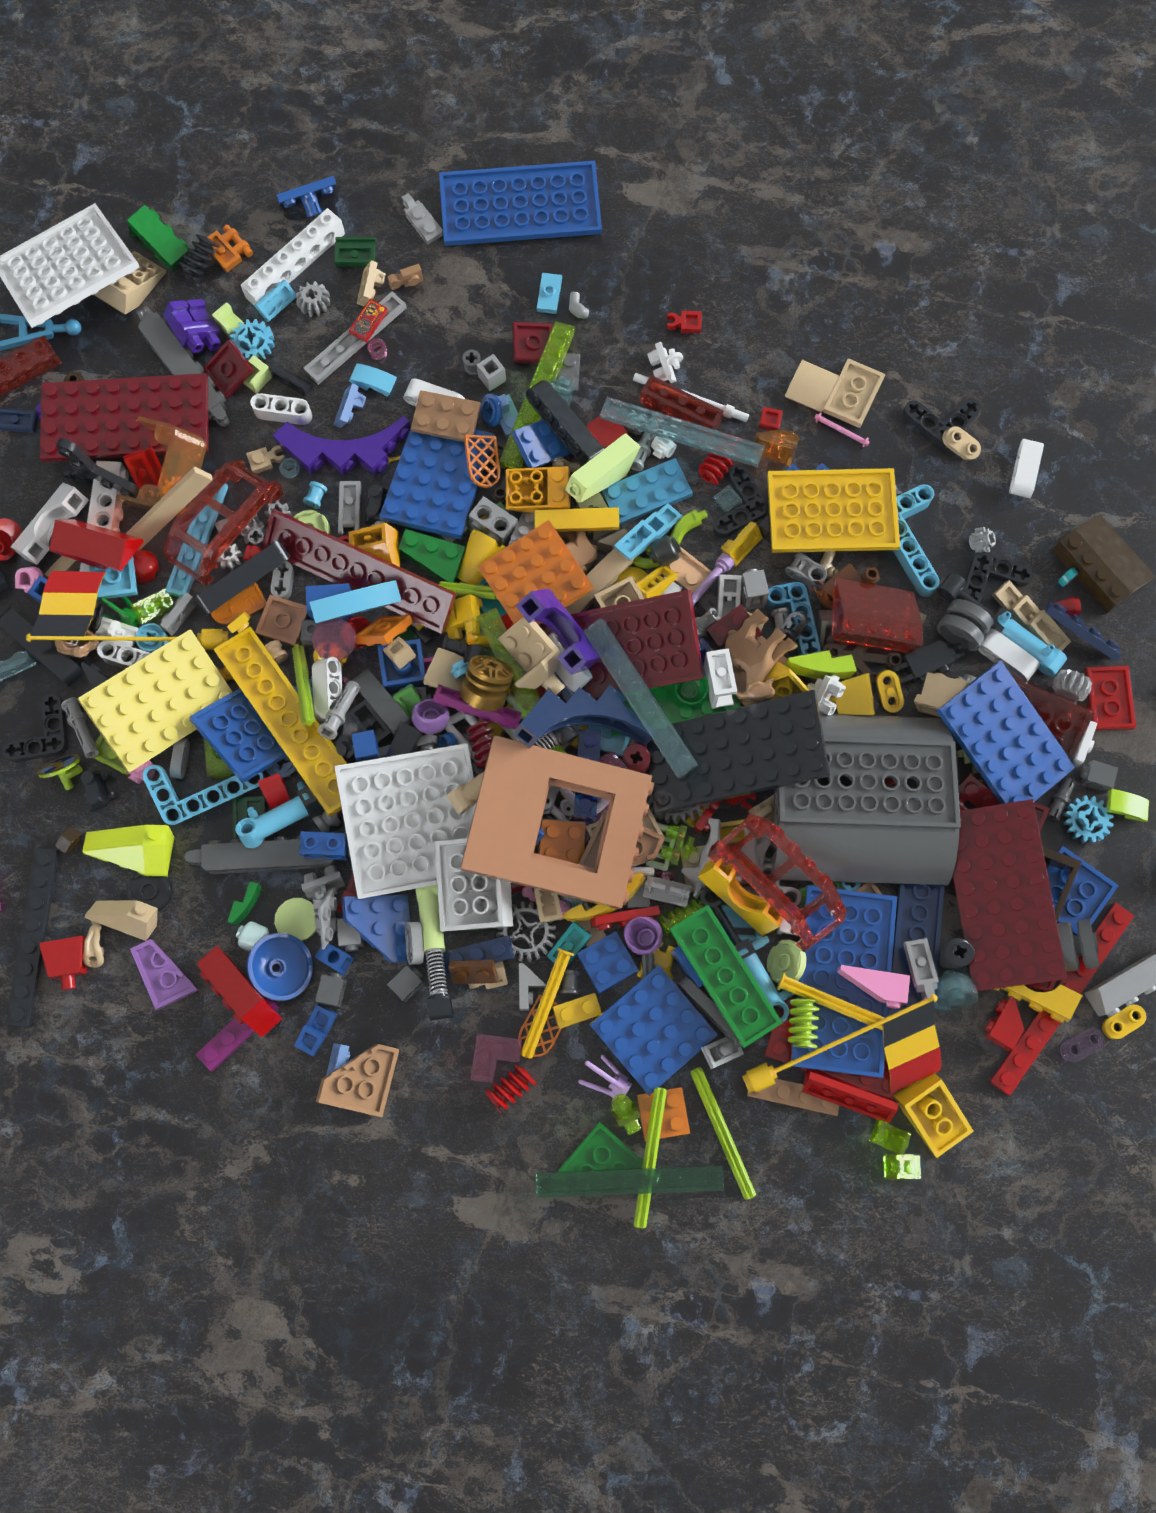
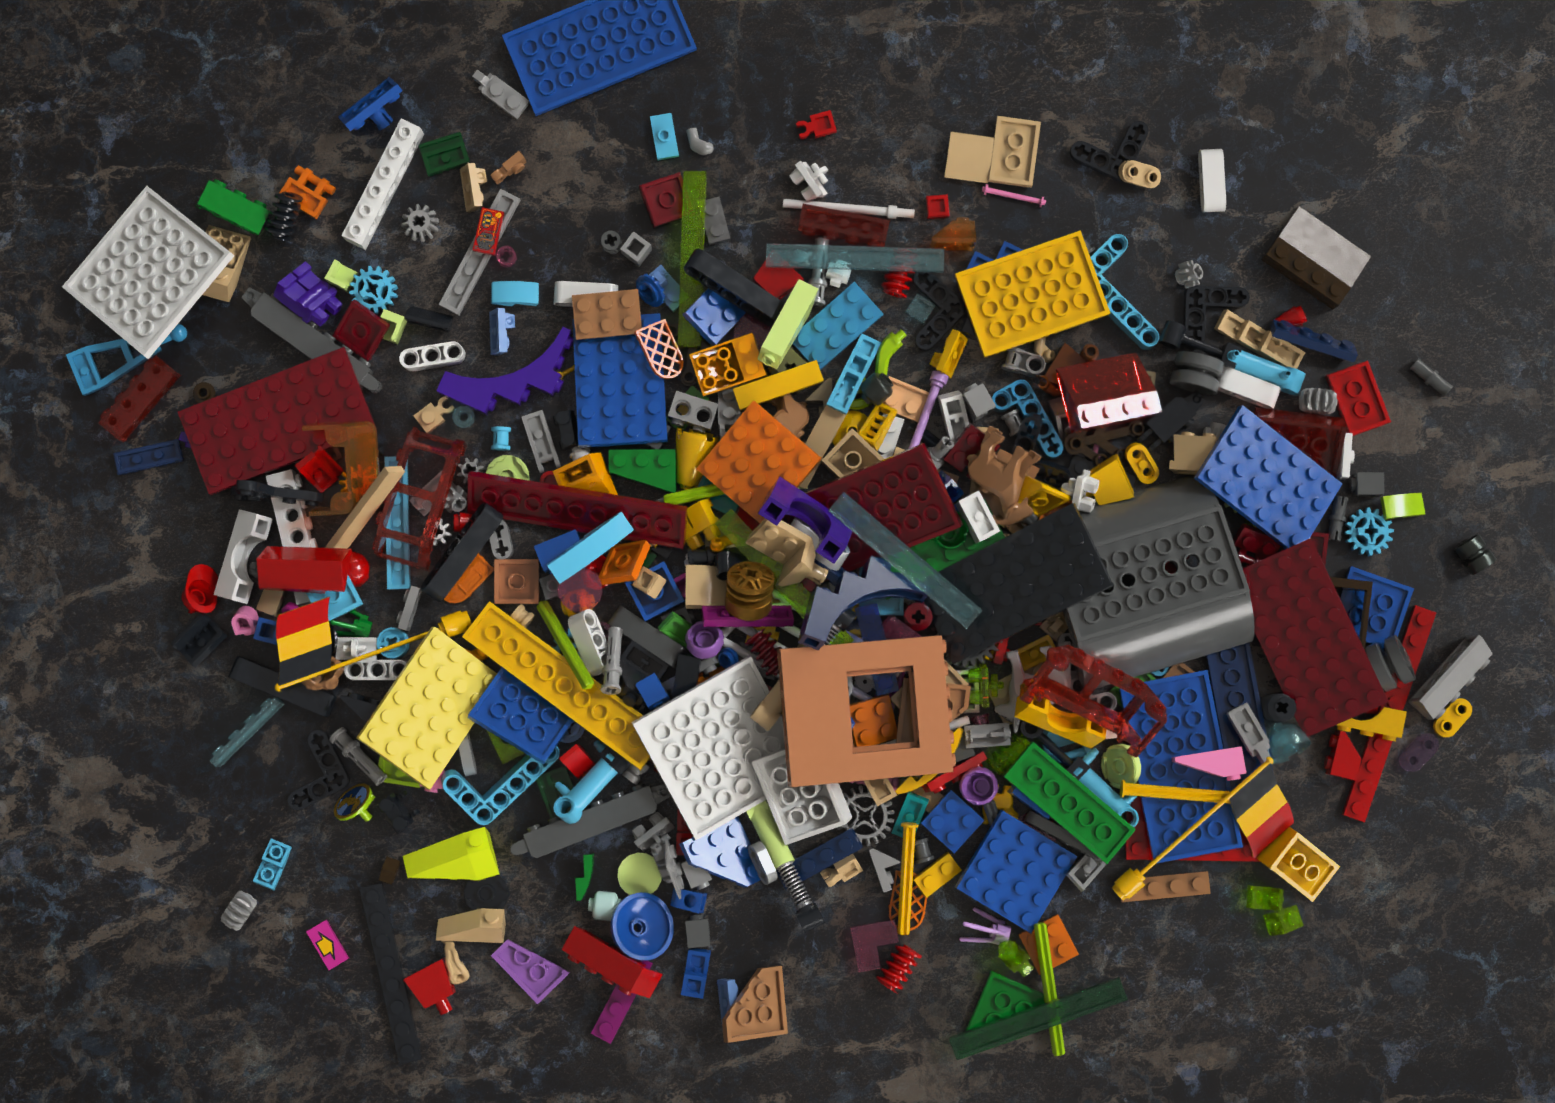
camera: 20 degrees left, 10 degrees up
(152, 606) = (381, 610): clear neon green hips -> none
(239, 623) = (476, 600): yellow plate -> none
(275, 300) = (381, 236): medium azure plate -> none
(324, 846) = (645, 799): blue brick -> none
(406, 983) = (767, 901): dark grey brick -> none
(459, 669) = (717, 583): medium azure plate -> none
(473, 972) = (828, 872): reddish brown plate -> none
(561, 462) = (742, 328): dark tan arm -> none
(563, 388) = (716, 245): clear light blue brick -> none
(723, 1133) = (1108, 943): lime axle -> none
(803, 1023) = (1155, 823): lime piece -> none
(821, 664) = (1069, 463): lime slope -> none
(848, 1095) = (1216, 872): red fence -> none
(1068, 577) = (1284, 286): teal tile -> none

